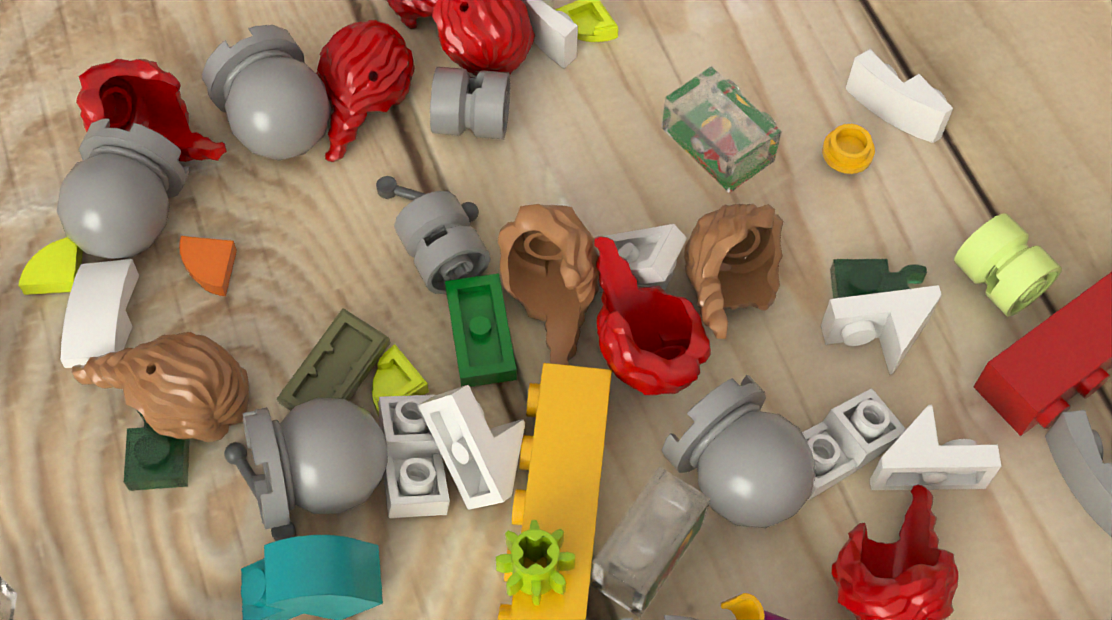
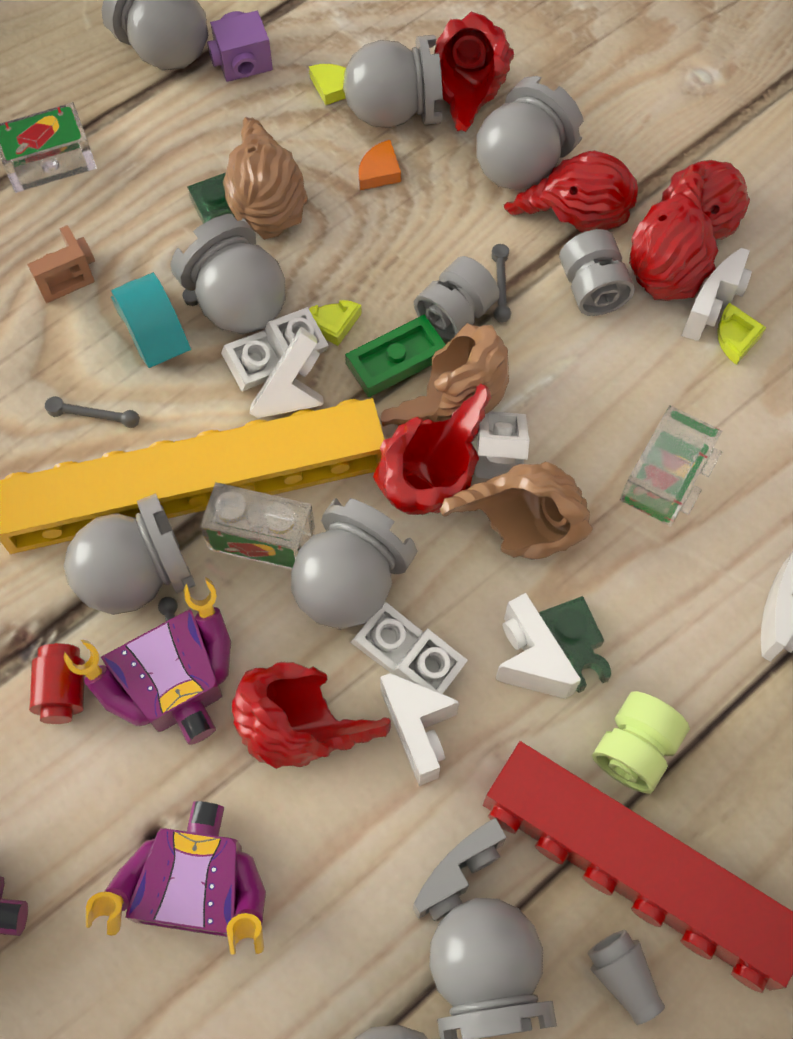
camera: 70 degrees right, 5 degrees up
(97, 311) = (296, 118): white slope -> none
(336, 362) = (324, 273): olive plate -> none
(535, 545) = (193, 439): lime gear -> none
(848, 149) = (708, 579): yellow plate -> none

